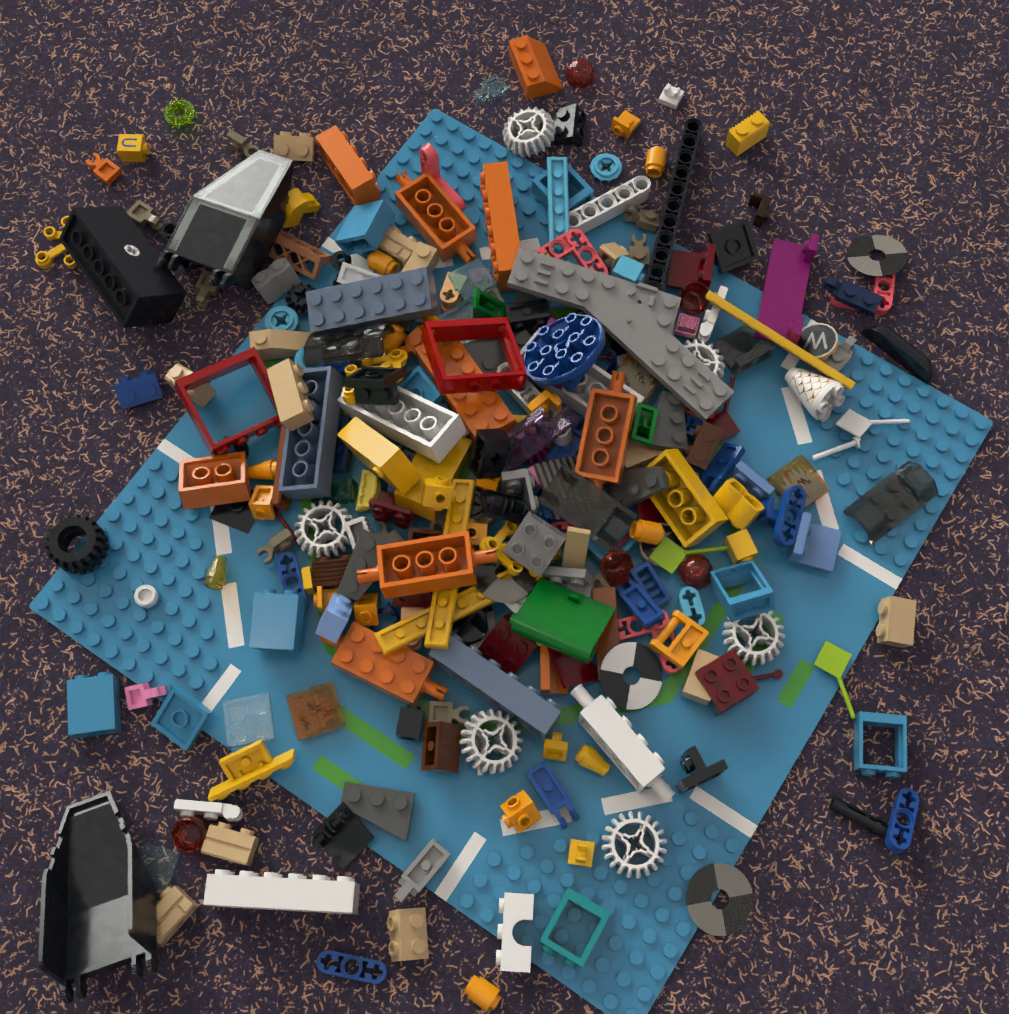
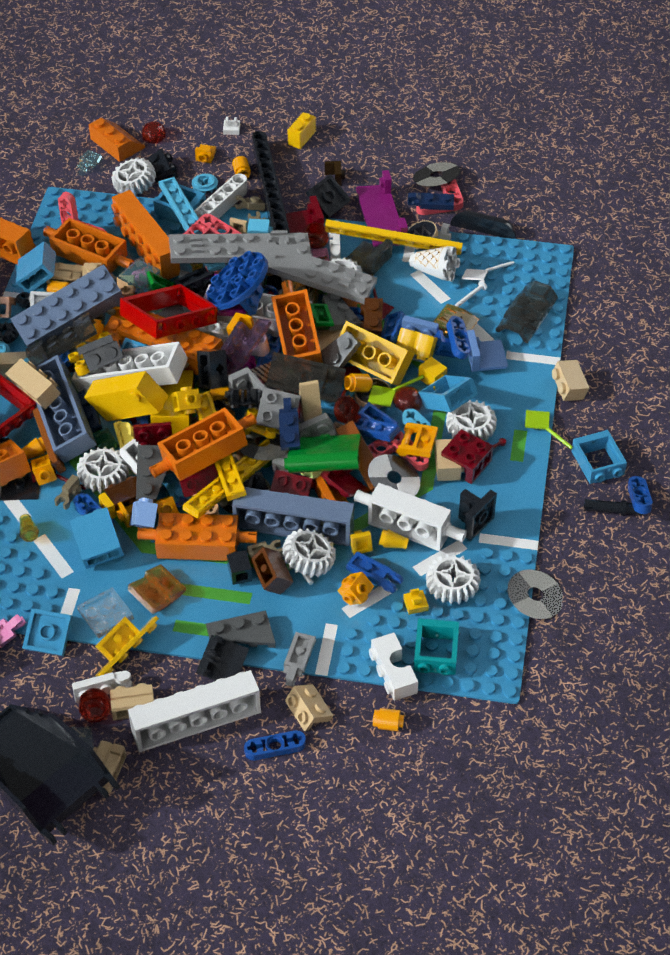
camera: 25 degrees left, 20 degrees down
(534, 576) = (289, 426): none -> dark blue hinge

